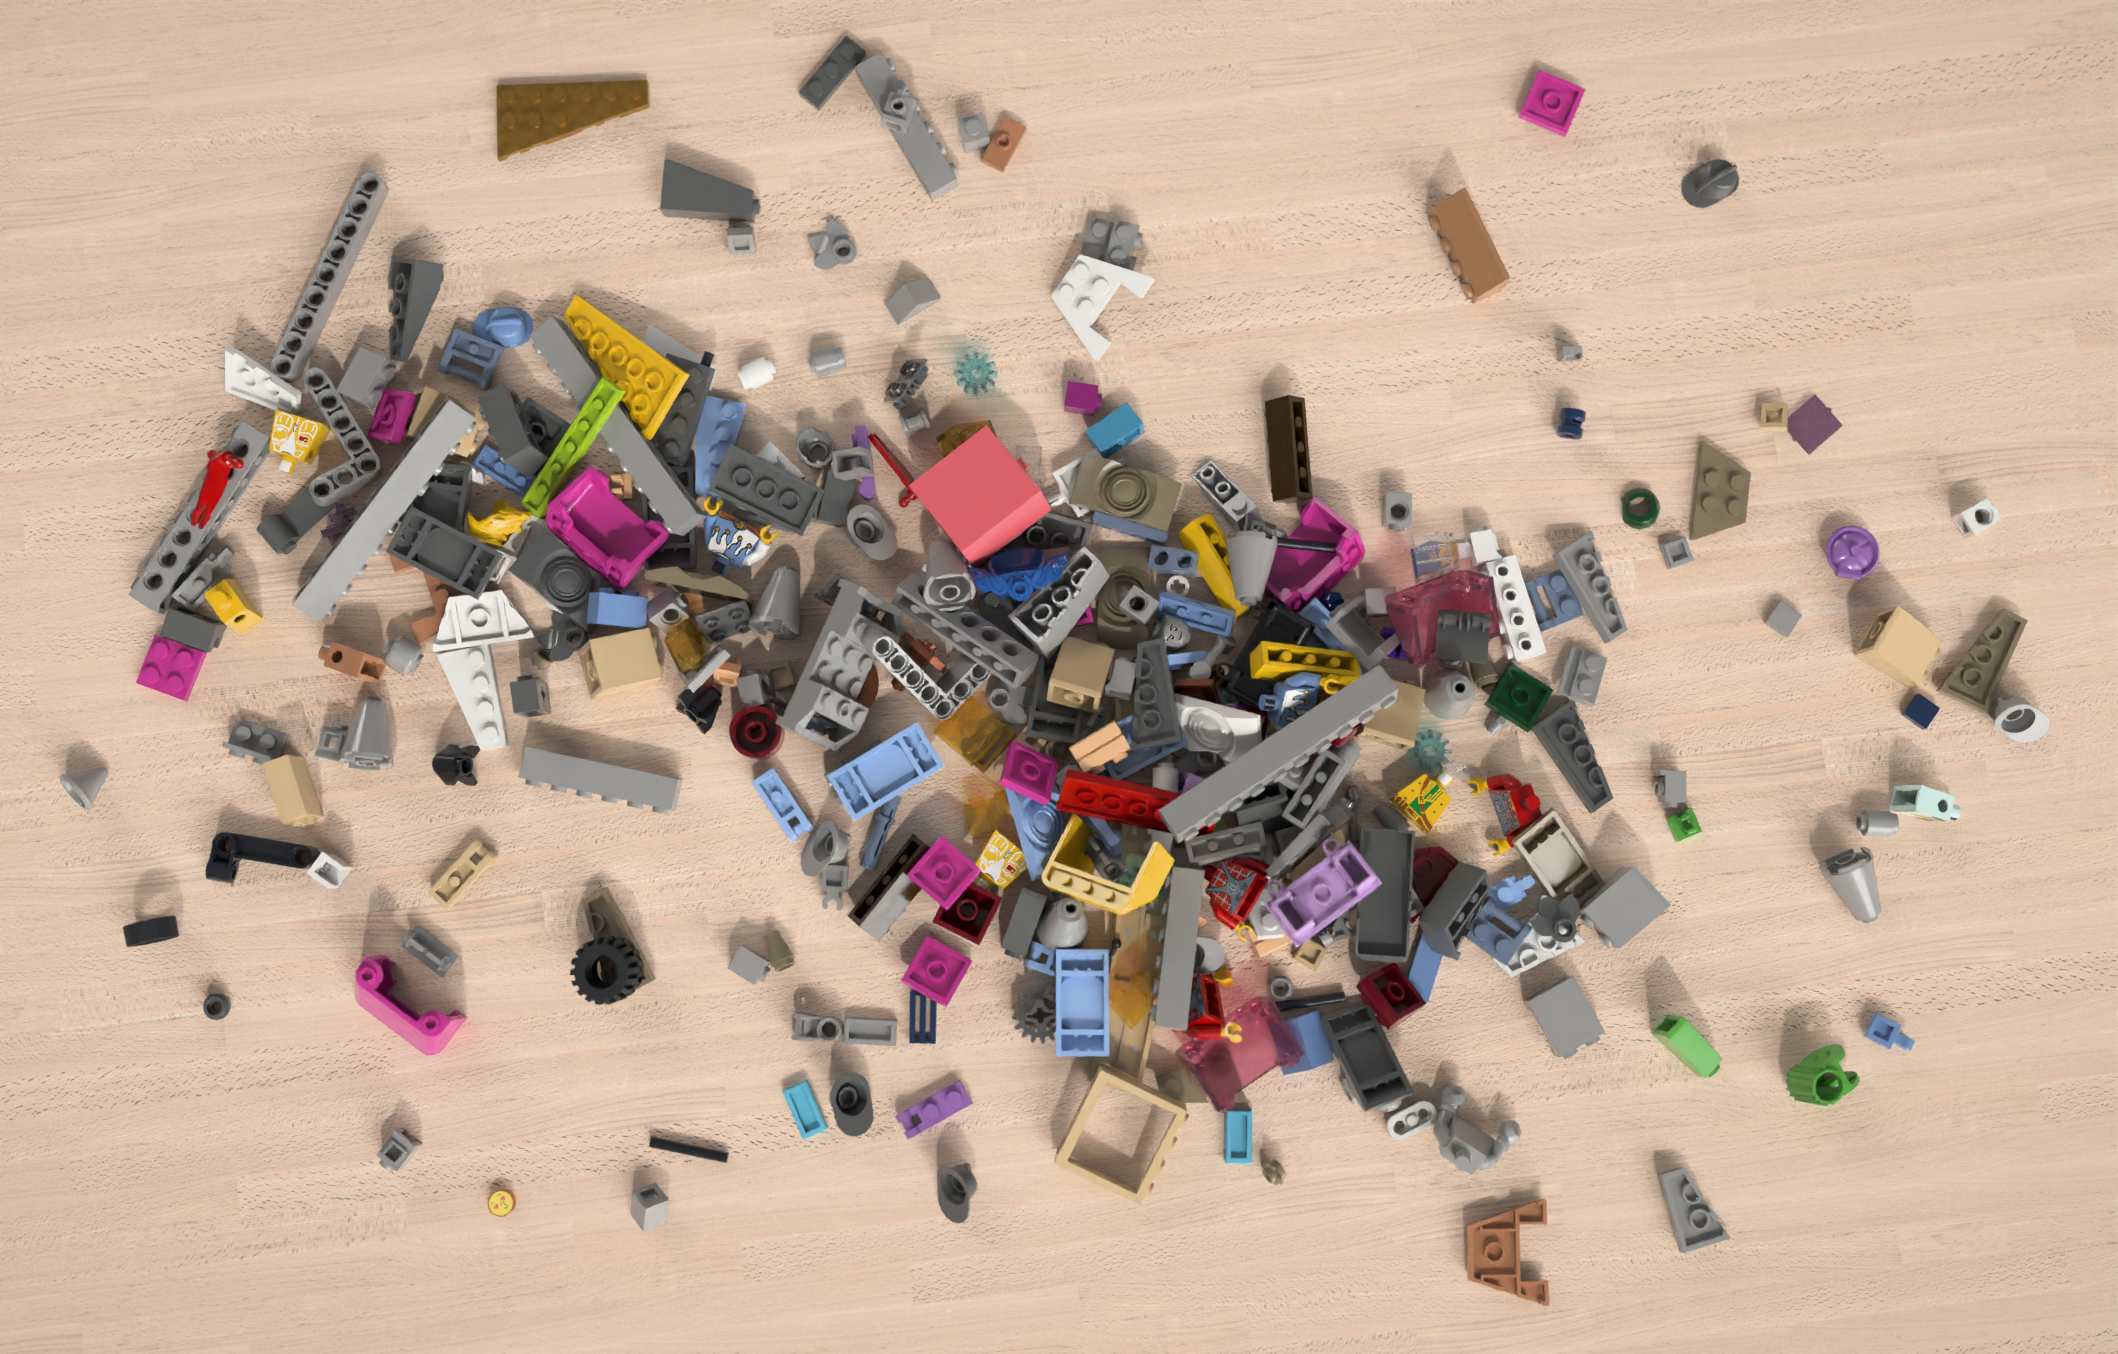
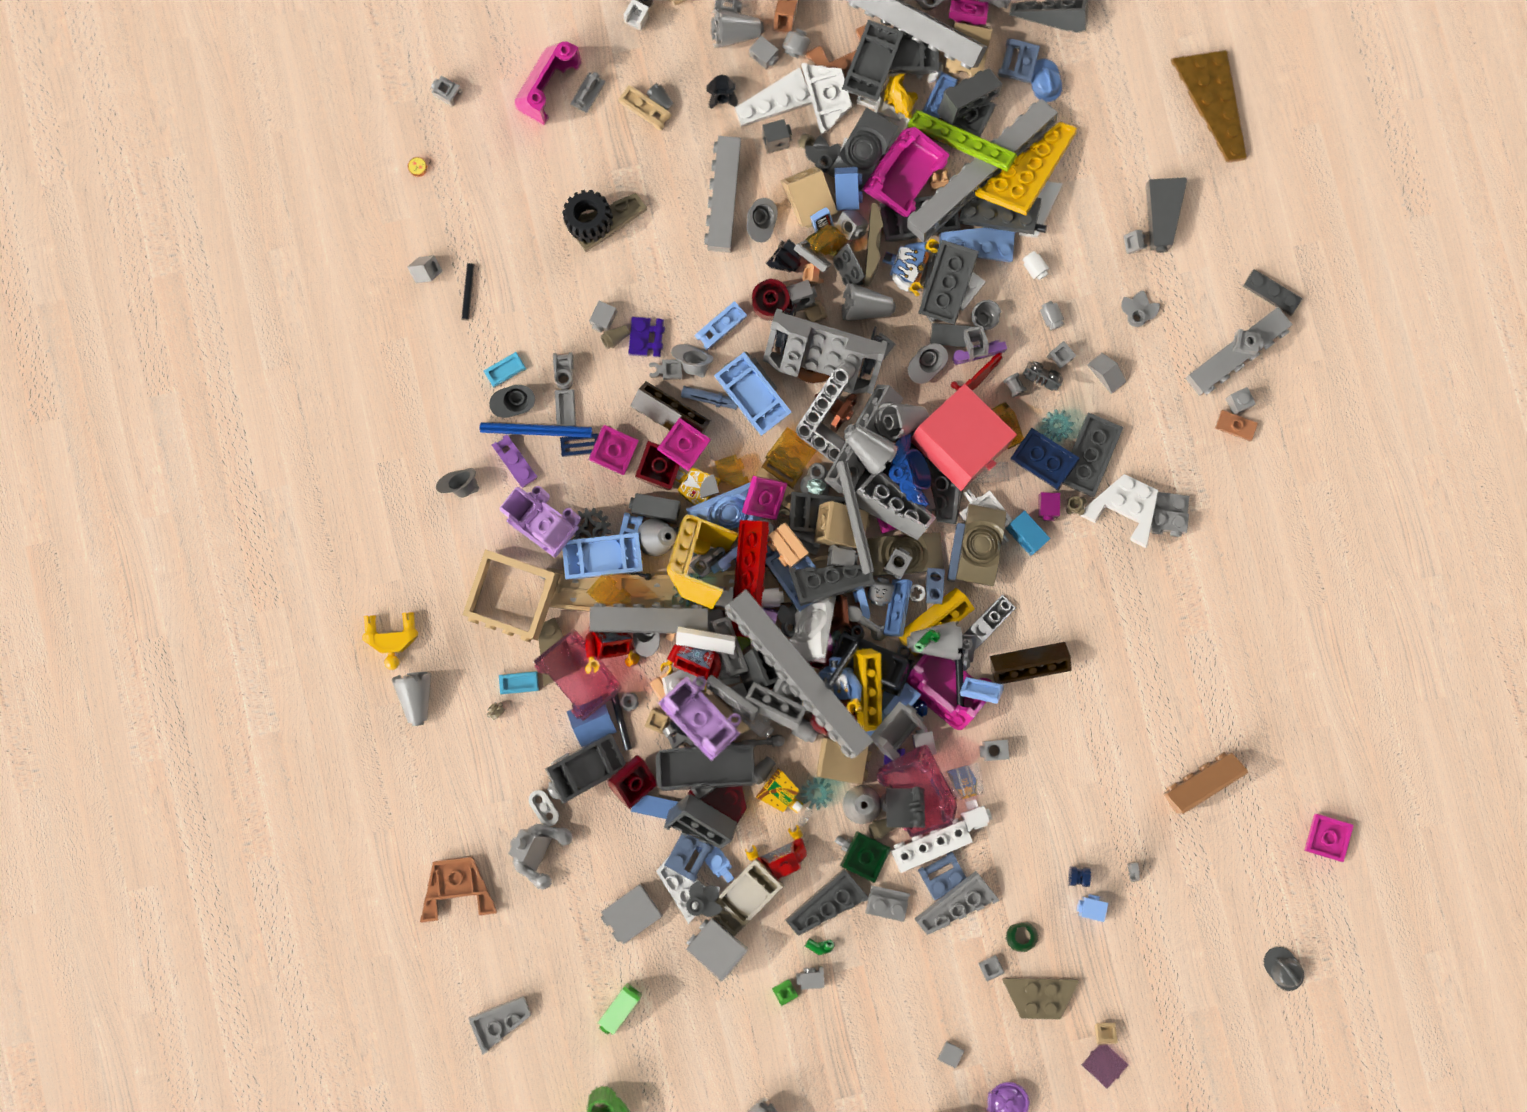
camera: 85 degrees right, 0 degrees up
(409, 700) = (764, 52): none -> light grey brick
(450, 851) = (659, 96): none -> dark grey cone
(644, 731) = (761, 219): none -> light grey piece
(656, 649) = (821, 219): none -> tile
(784, 917) = (640, 334): none -> dark purple plate
(882, 355) = (1061, 354): none -> light grey panel
(895, 1075) = (546, 430): none -> blue axle
(982, 619) = (870, 447): none -> light grey cone
(1005, 846) = (709, 487): none -> light grey tile
(1019, 395) = (1045, 459): none -> dark blue plate
(1020, 335) = (1094, 448): none -> dark grey plate
(1020, 702) = (816, 486): none -> light aqua plate
(1023, 1082) = (538, 520): none -> lavender container
(1073, 652) = (855, 517): none -> light grey axle
(1078, 364) = (1072, 501): none -> dark tan plate
(1165, 1308) = (390, 642): none -> yellow connector
(1217, 873) = (705, 640): none -> white tile
(1241, 1283) = (413, 695): none -> light grey cone
(1250, 578) = (925, 640): none -> green arm
(1273, 694) = (841, 666): none -> black bar
(1319, 516) = (982, 690): none -> light blue tile
(1613, 412) = (1092, 908): none -> light blue brick
(1630, 770) = (820, 948): none -> green arm

